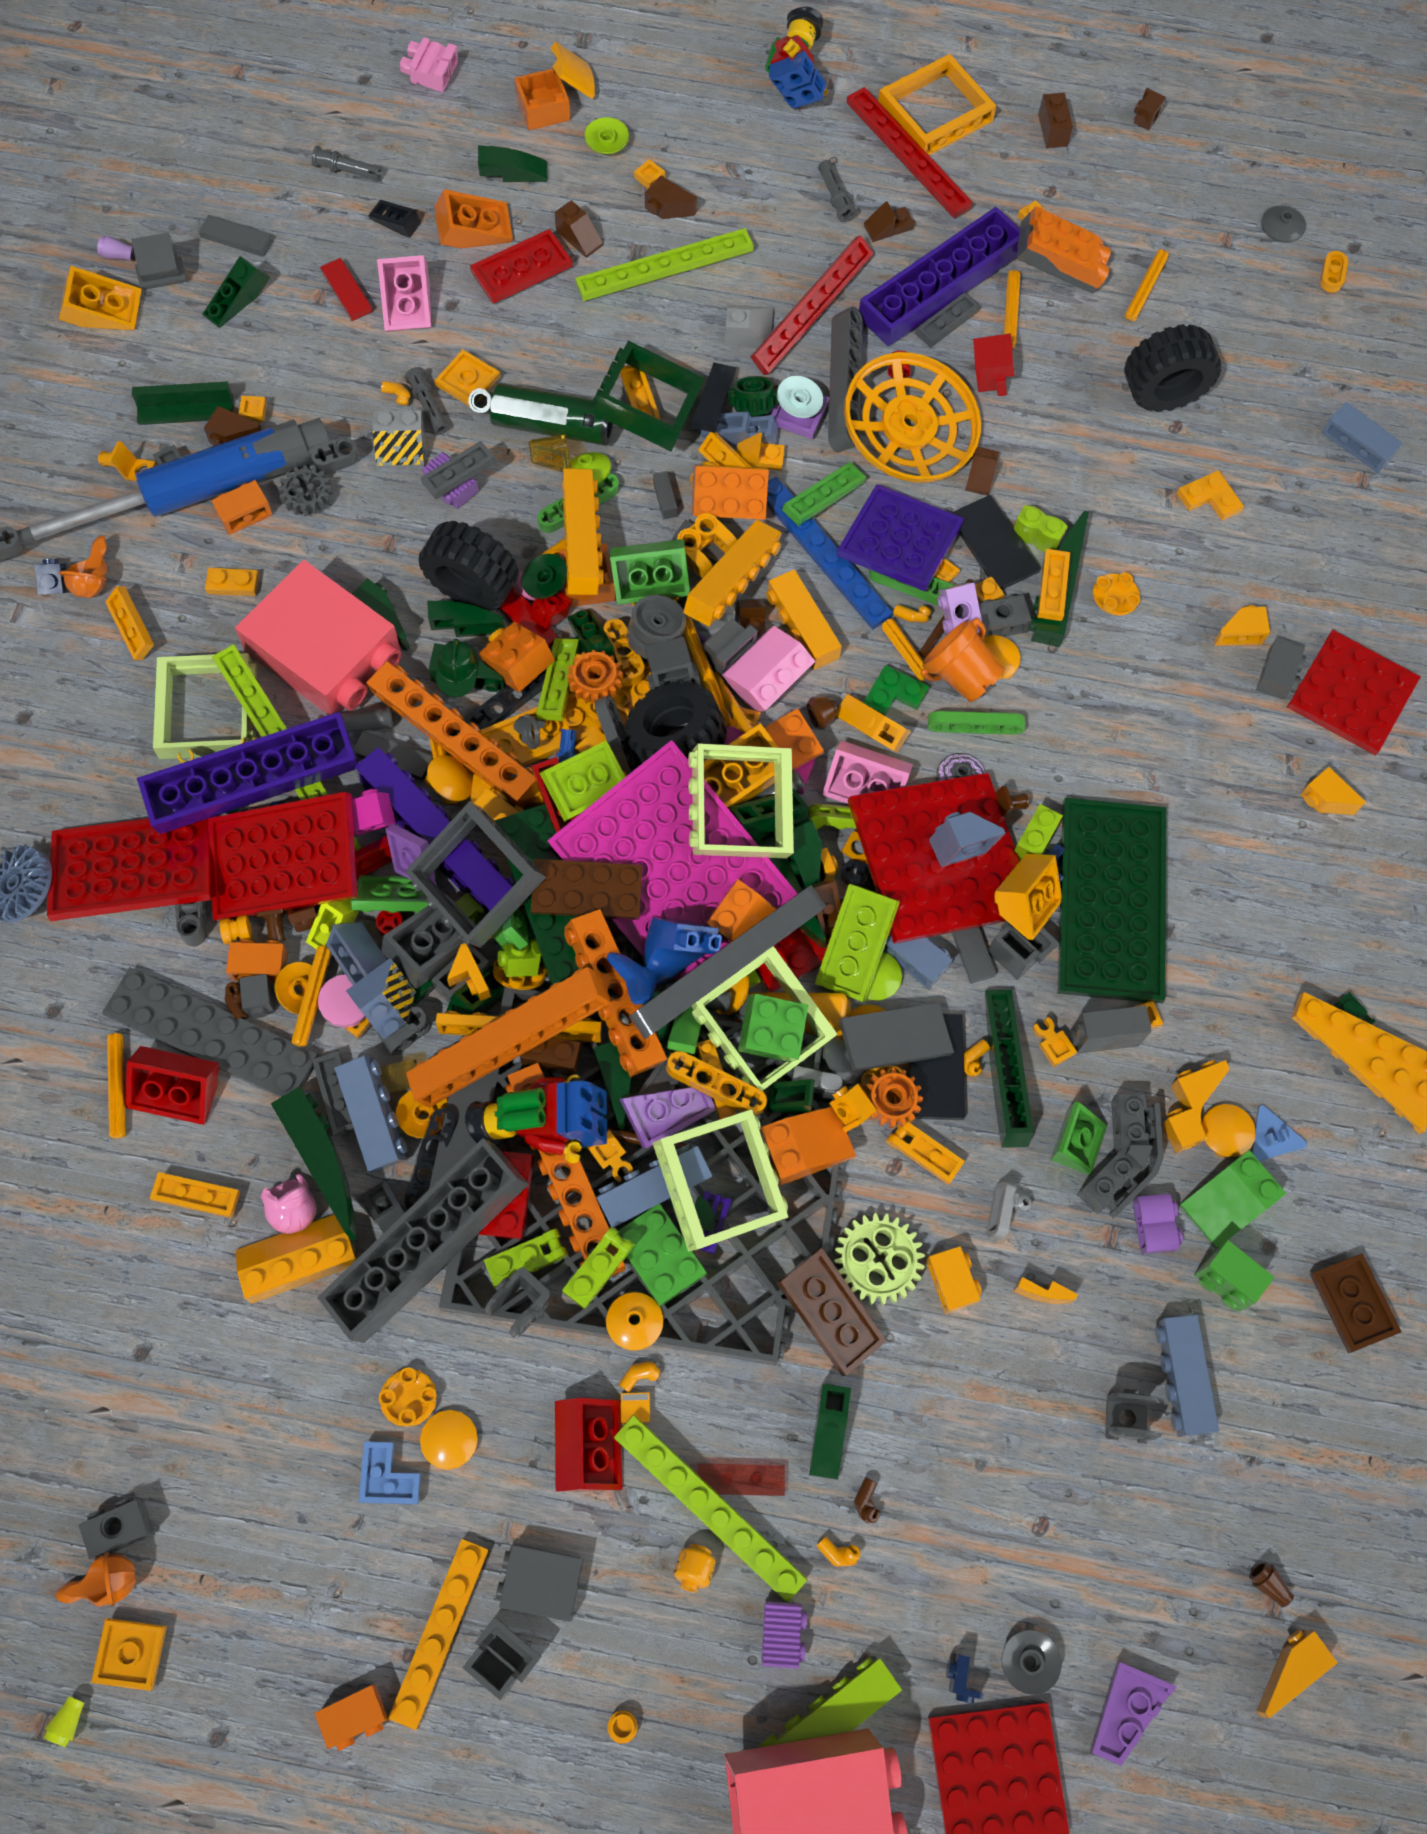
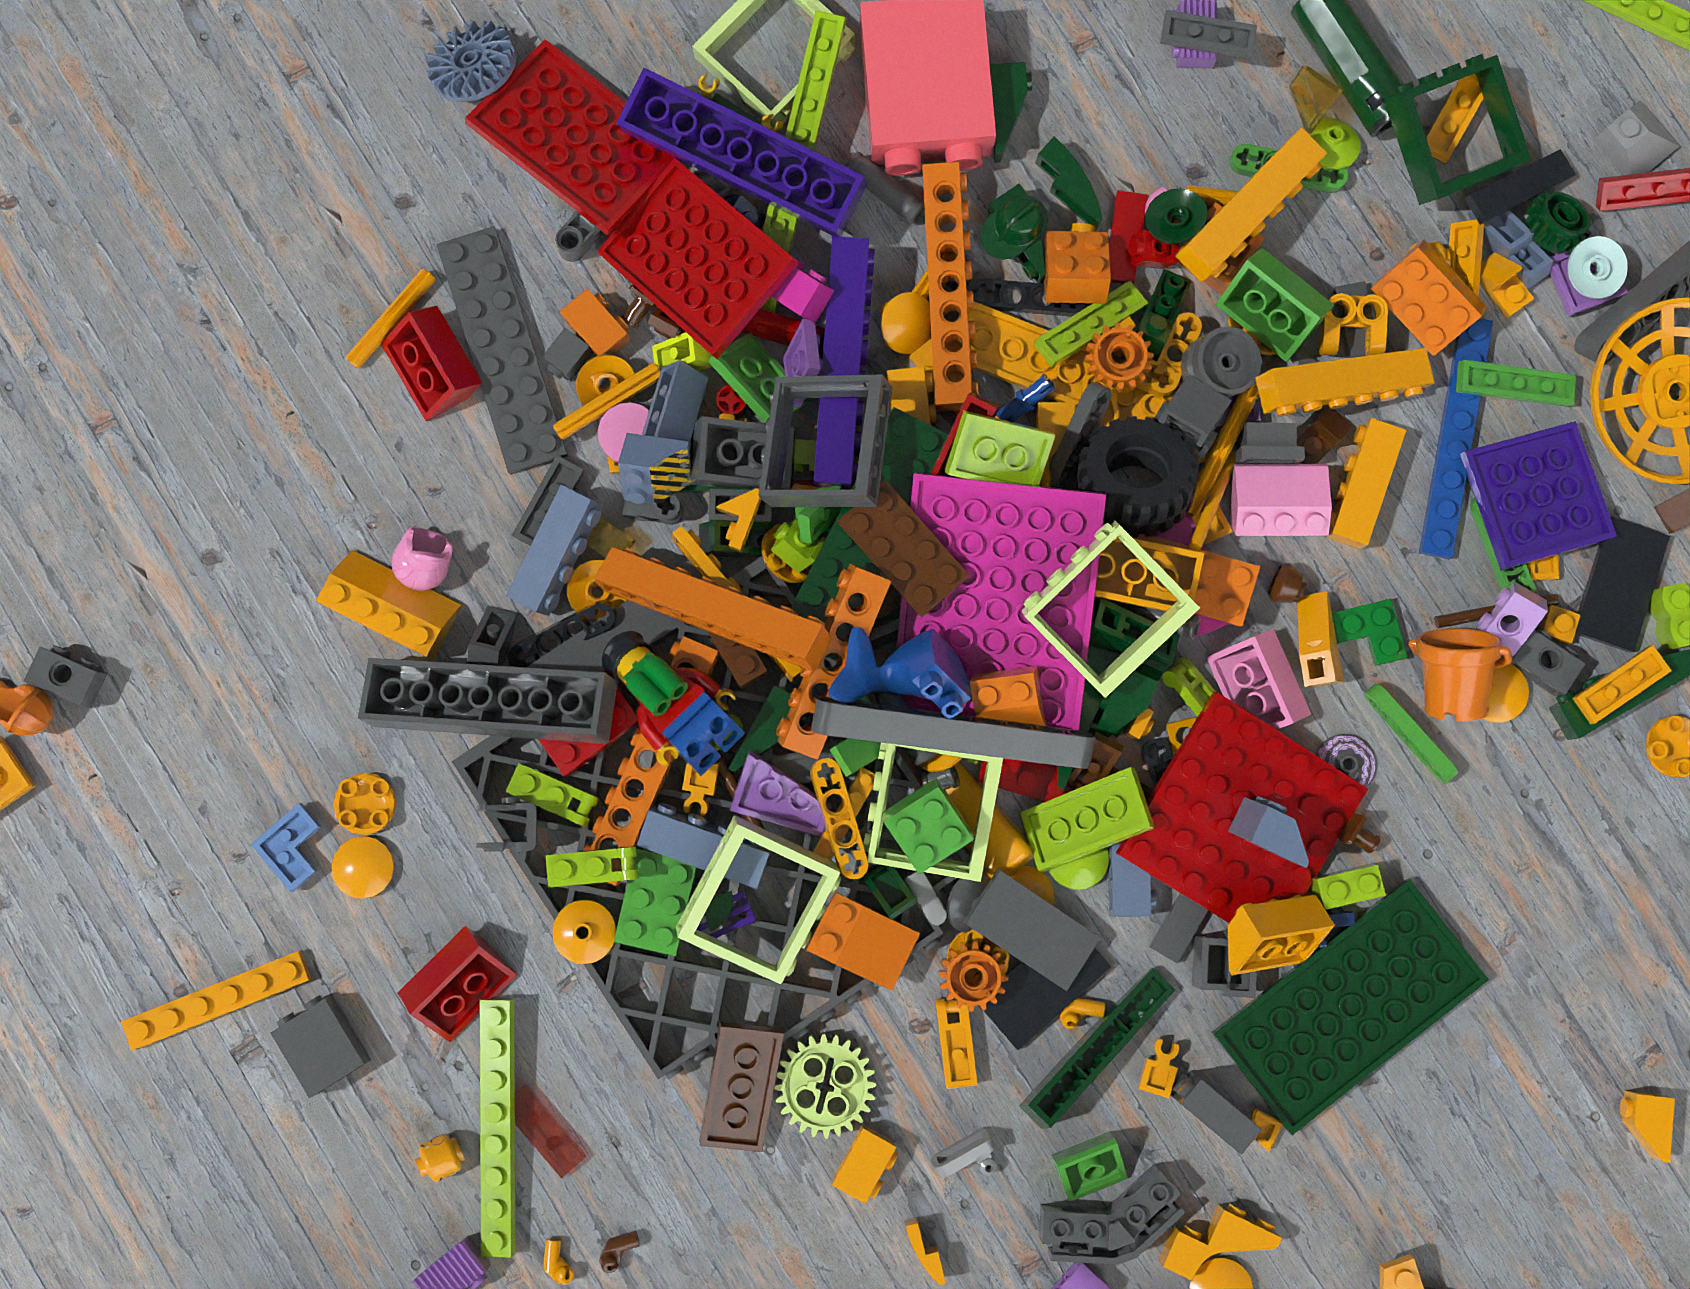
camera: 50 degrees right, 15 degrees up
(195, 1195) = (363, 474): light orange plate -> none
(233, 930) = (604, 278): light orange wheel -> none
(233, 1000) = (545, 339): reddish brown arm -> none
(318, 1153) = (482, 542): dark green slope -> none
(351, 1716) = (97, 994): orange brick -> none
(407, 758) = (888, 256): dark grey tile -> none
(468, 565) = (1118, 141): black tyre -> none
(500, 1659) = (233, 1071): dark grey plate -> none
(523, 726) = (1018, 339): dark grey piece -> none
(622, 1727) = (275, 1208): light orange plate -> none
(635, 1404) = (523, 991): light orange tile -> none
(639, 1371) = (552, 970): light orange arm -> none
(665, 495) = (1372, 238): dark grey piece -> none
(829, 1431) = (645, 1170): dark green slope -> none
(852, 1106) = (929, 950): light orange brick -> none
(904, 647) = (1427, 598): light orange axle -> none
(912, 616) = (1466, 578): light orange arm -> none

